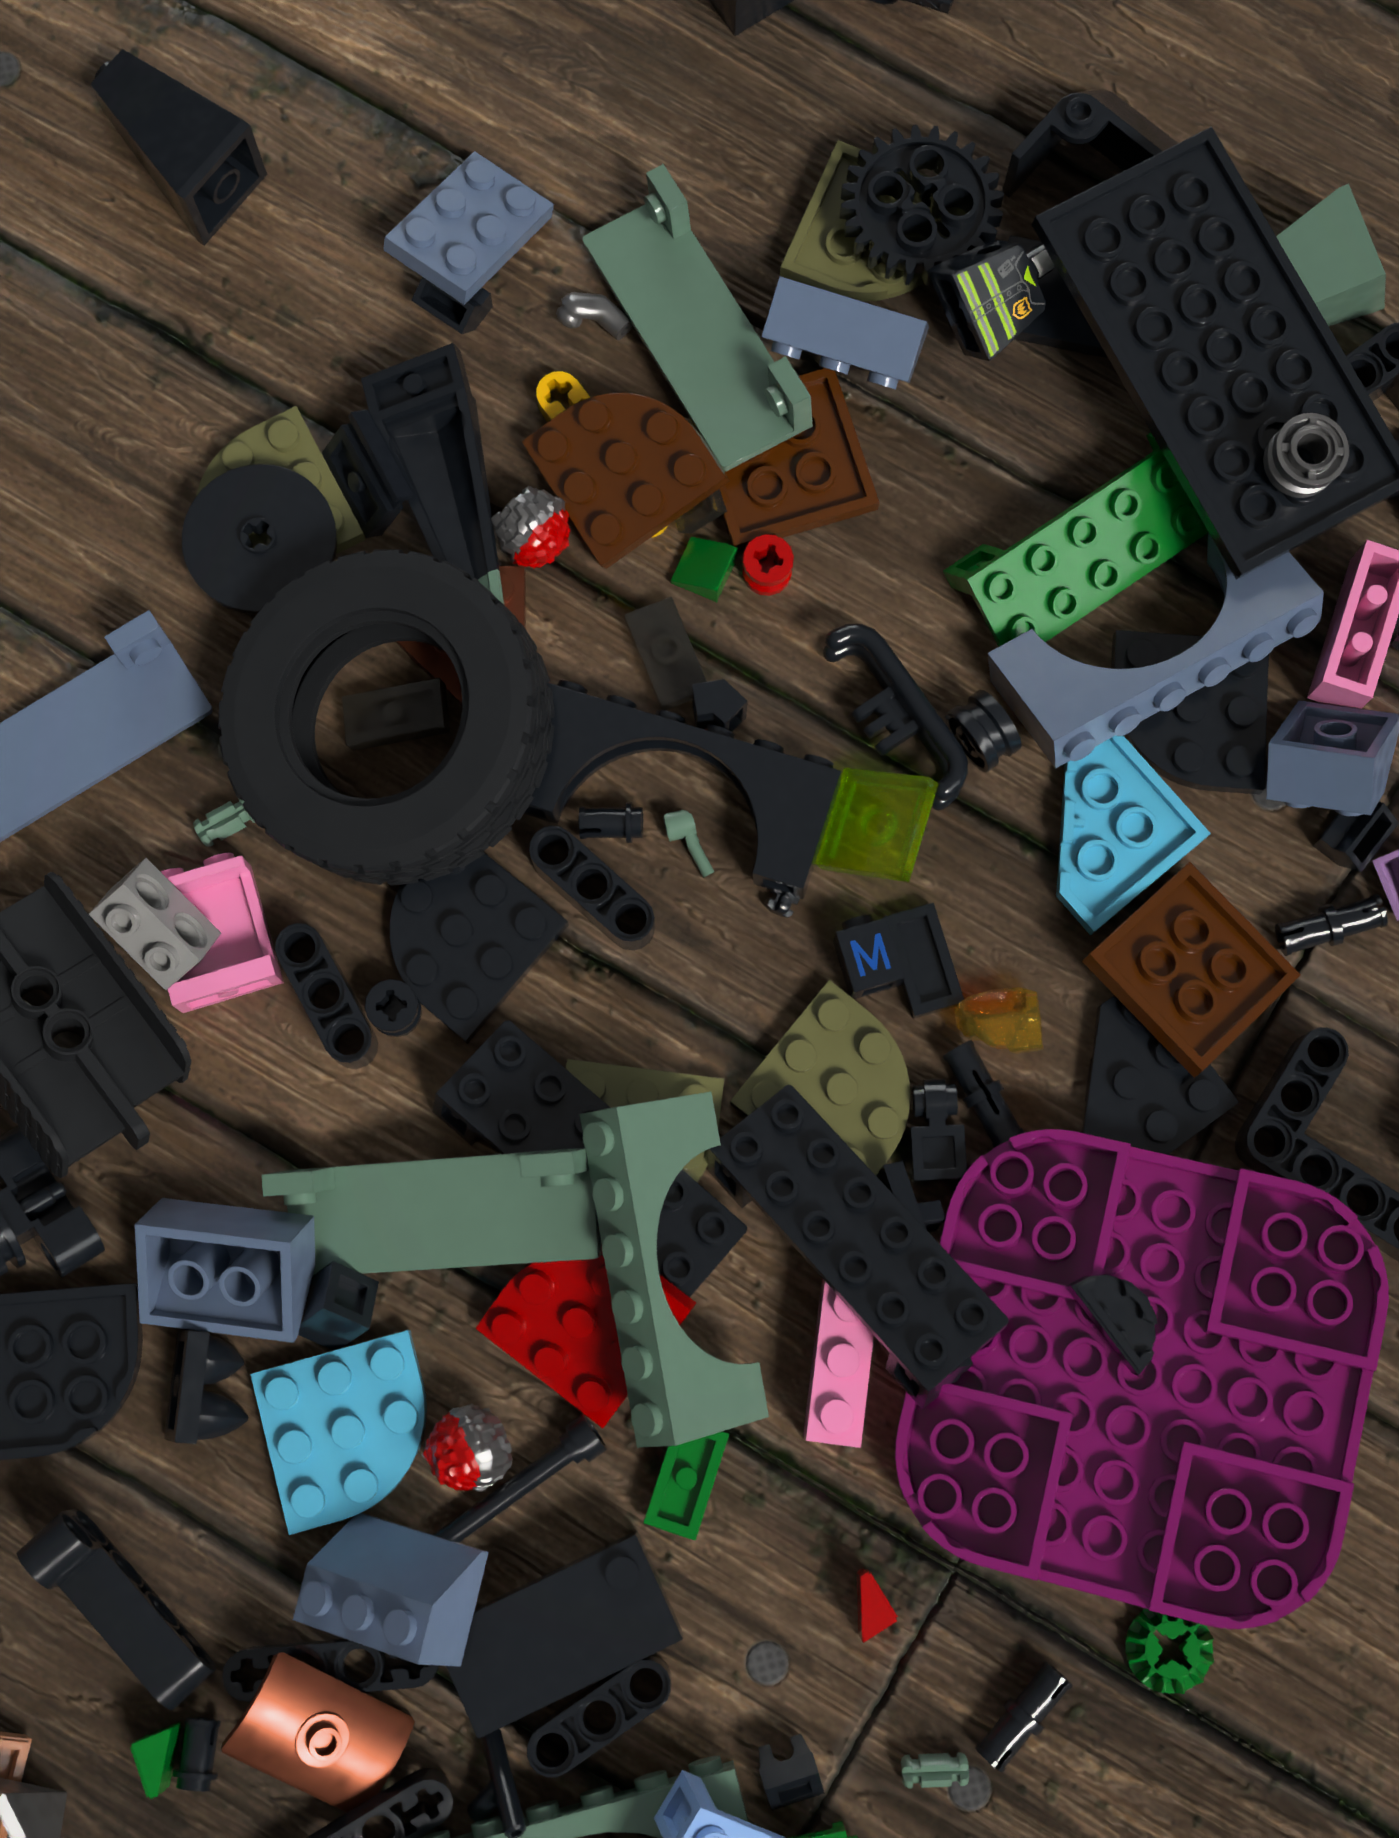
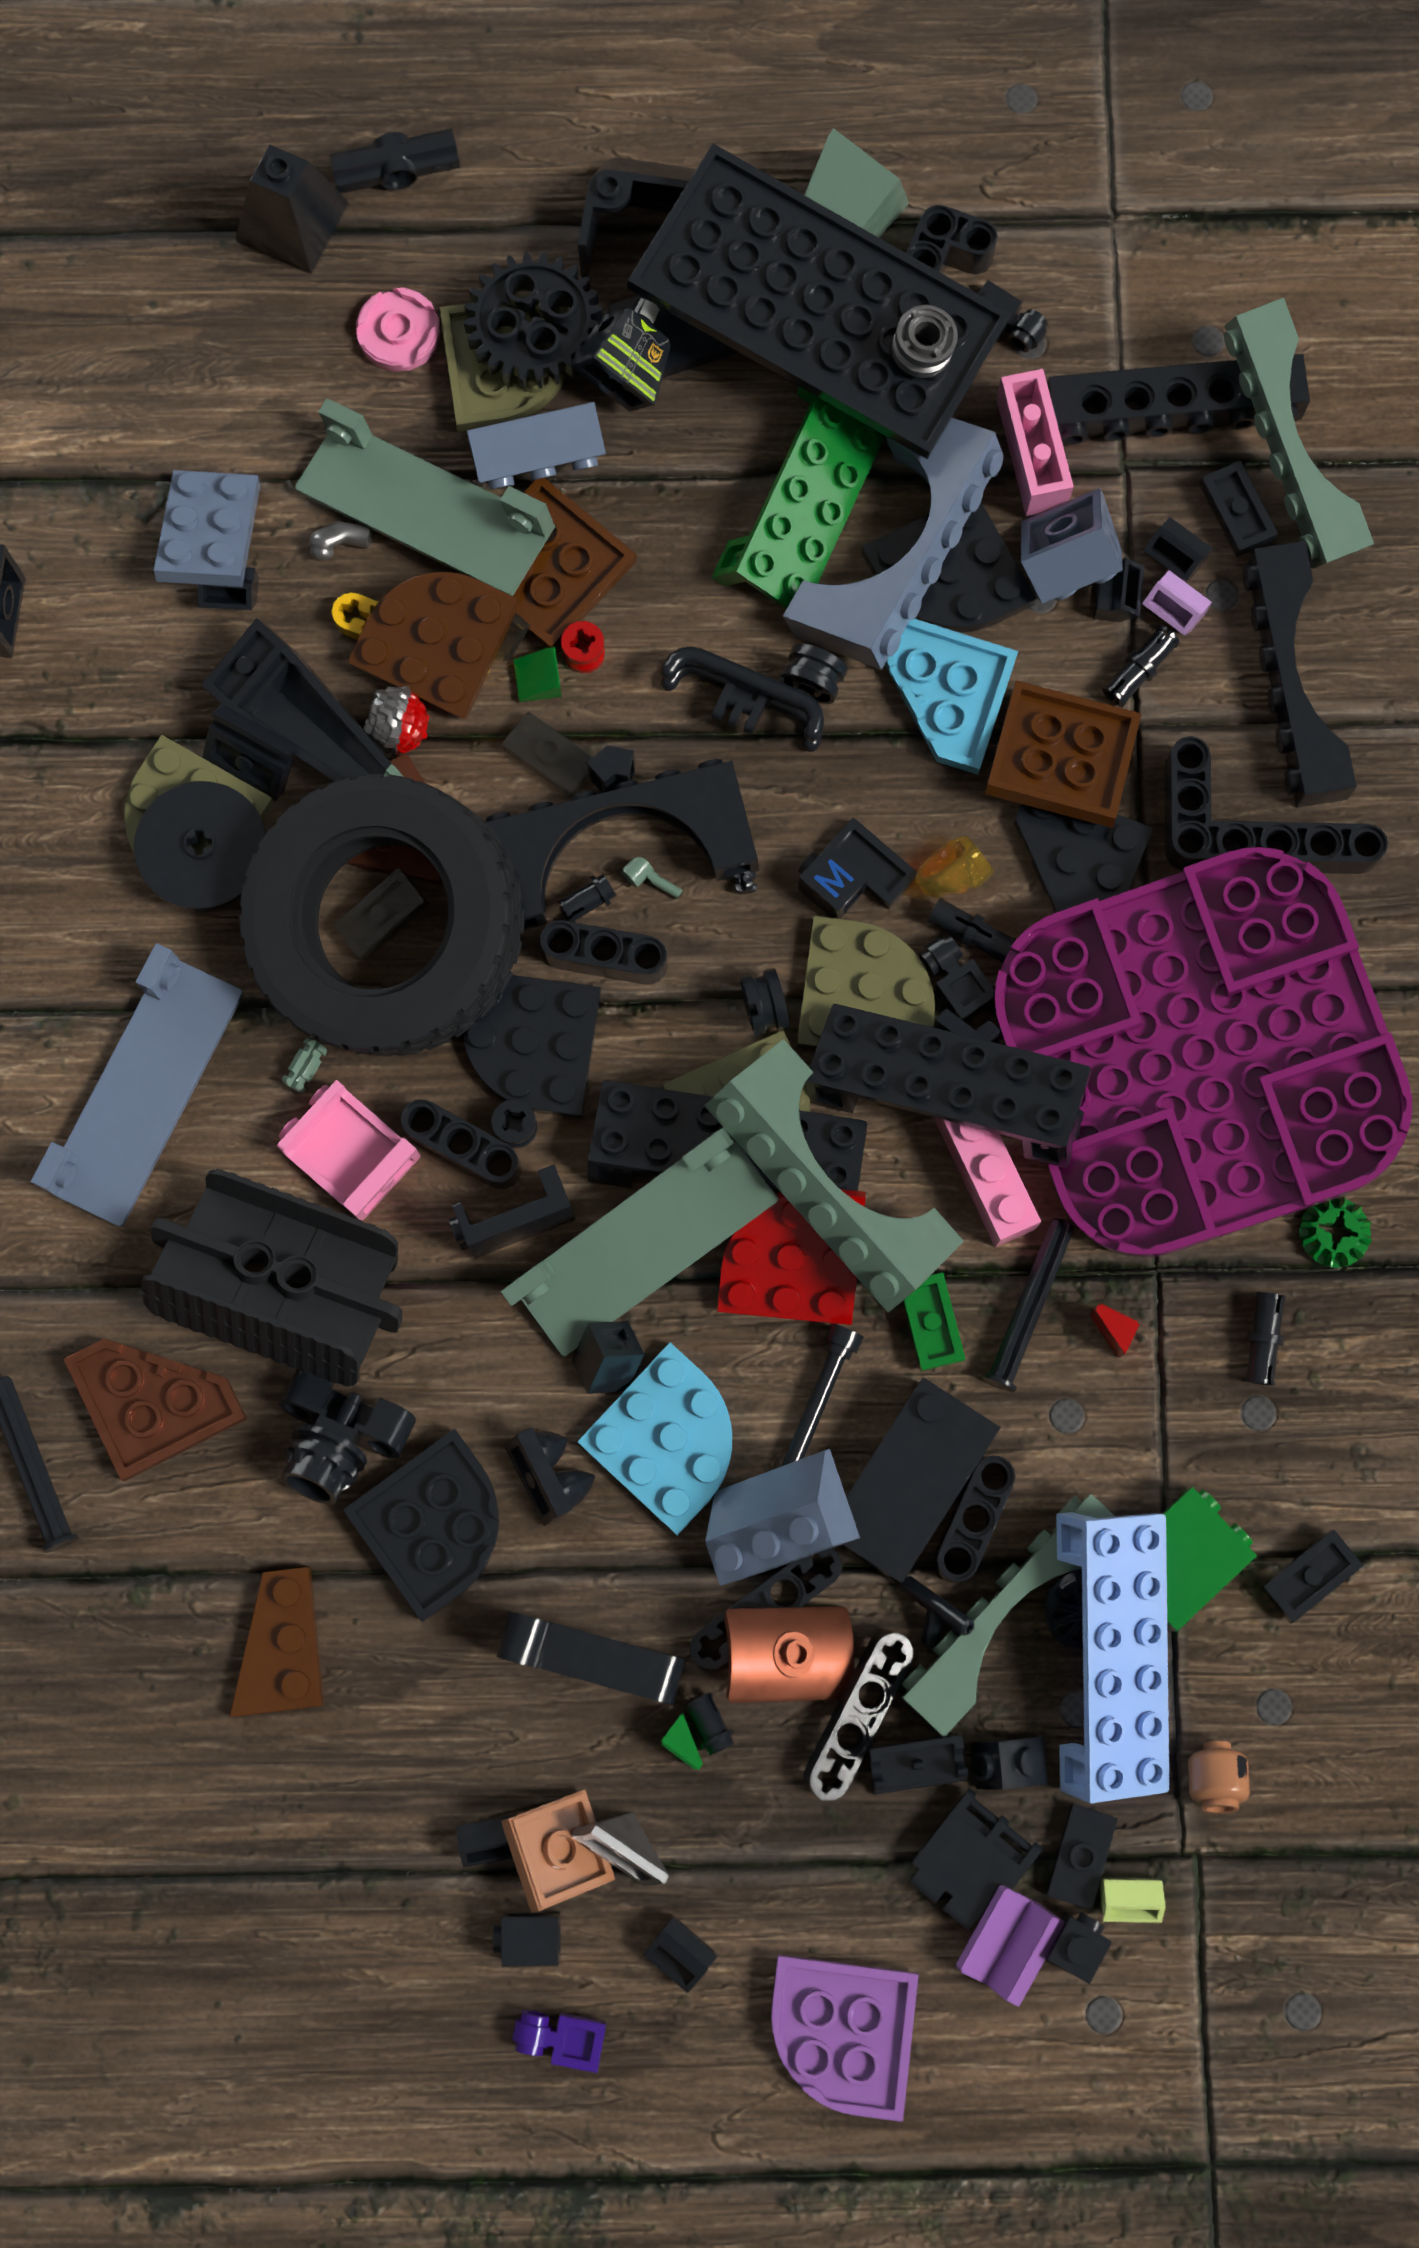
camera: 30 degrees left, 0 degrees up
(155, 924) = (307, 1163): light grey brick -> none
(224, 1268) = (513, 1377): sand blue slope -> none
(376, 1120) = (517, 1223): none -> black panel
(468, 1449) = (767, 1395): piece -> none
(721, 1038) = (764, 1002): none -> black wheel
(784, 140) = (398, 330): none -> bright pink tile
(790, 1779) = (1134, 1478): black tile -> none
(800, 1523) = (1030, 1305): none -> black axle
(877, 824) = (780, 784): clear neon green tile -> none
(935, 1770) = (1227, 1413): sand green piece -> none
(1120, 1315) = (1164, 1019): black tile -> none

